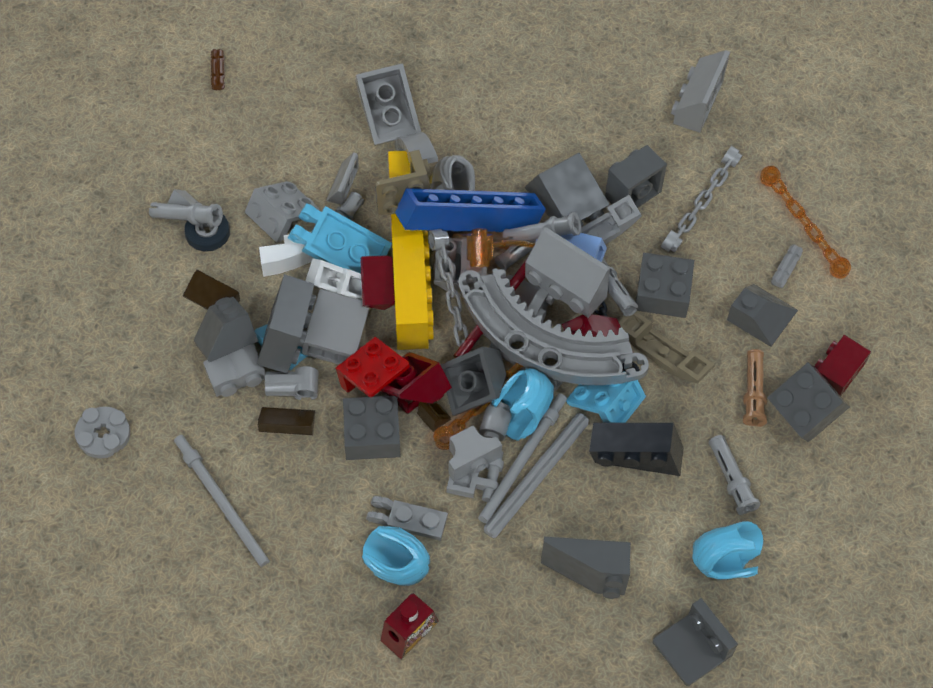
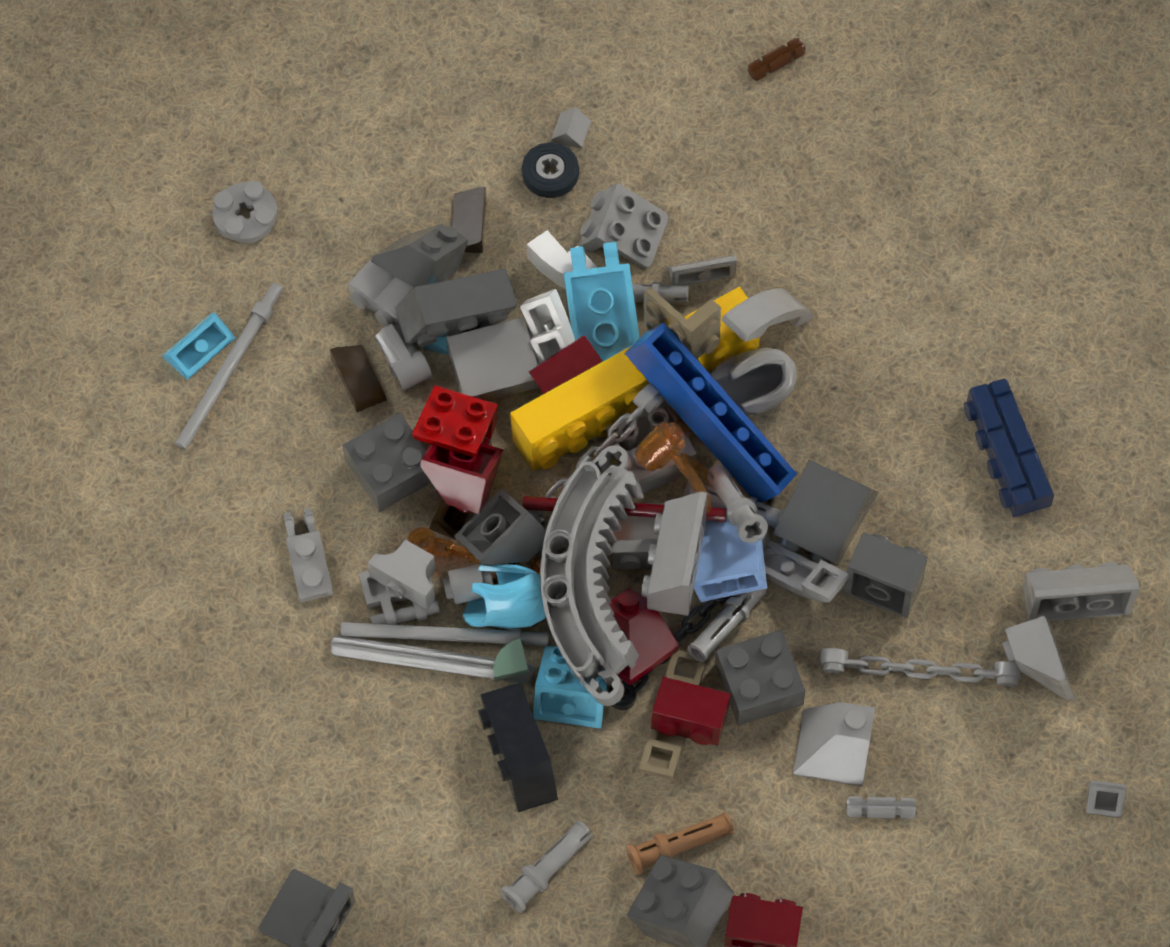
camera: 65 degrees right, 5 degrees up
(189, 513) = (199, 346): none -> medium azure slope
(194, 213) = (552, 144): light grey pin -> none
(387, 103) = (836, 258): light grey slope -> none
(396, 556) = (248, 566): medium azure hair -> none
(410, 624) = (175, 614): dark red torso -> none
(572, 422) = (510, 661): none -> sand green tile
(579, 82) = (1009, 448): none -> dark blue brick
(591, 563) = (343, 778): dark grey slope -> none
(670, 333) = (690, 711): none -> dark red brick
(727, 550) = (437, 899): medium azure hair -> none
(730, 266) = (834, 742): none -> light grey slope
(740, 127) = (1038, 656): none -> light grey slope
(760, 314) = (793, 805): dark grey slope -> none
(772, 181) = (1003, 739): clear orange piece -> none
(841, 148) = (1105, 798): none -> light grey slope

